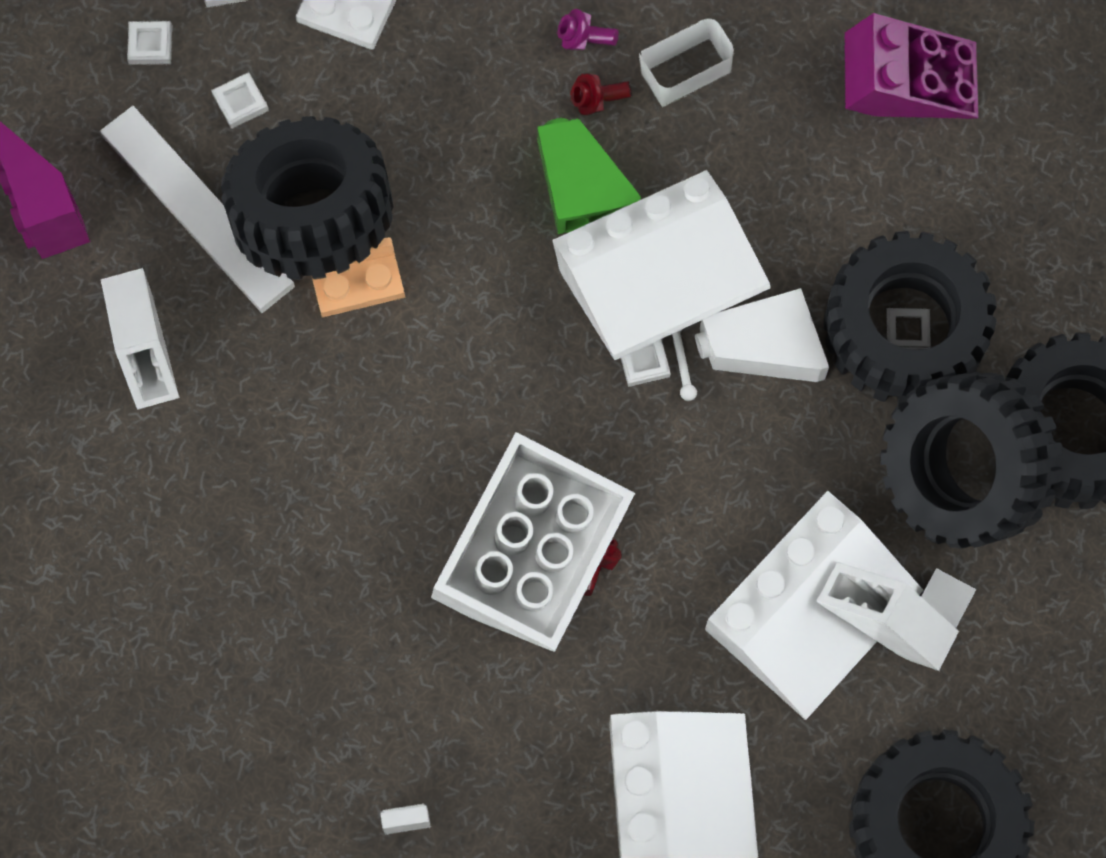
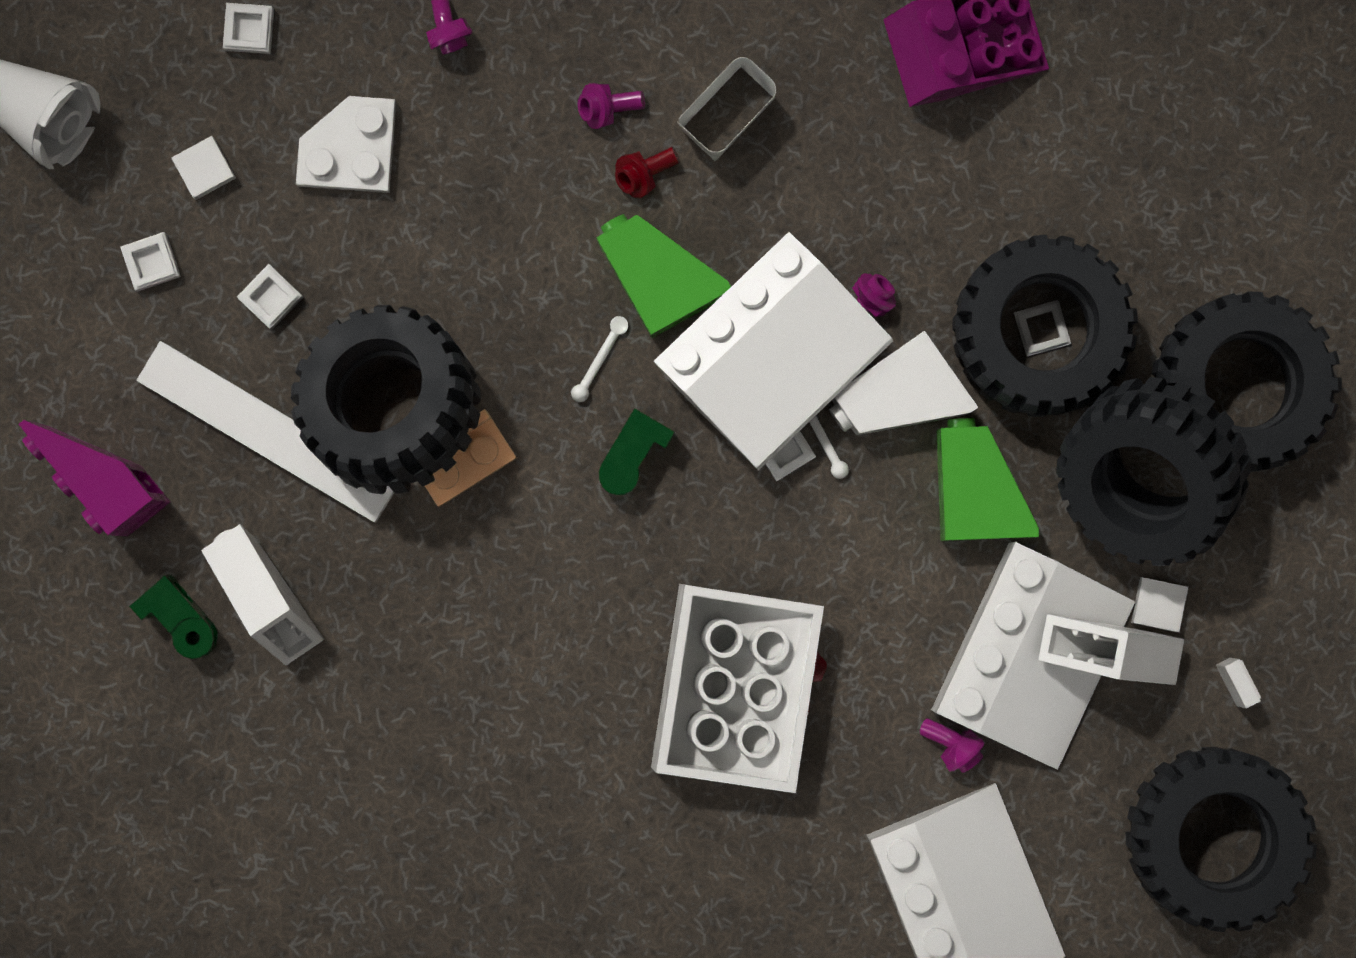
camera: 20 degrees left, 15 degrees up
(65, 346) = (190, 627): none -> dark green leg
(507, 317) = (620, 468): none -> dark green leg
(532, 215) = (618, 327): none -> white hinge
(721, 669) = (962, 749): none -> magenta plate
(768, 252) = (875, 294): none -> magenta plate
(808, 442) = (977, 487): none -> bright green slope
(999, 688) = (1238, 682): none -> white tile

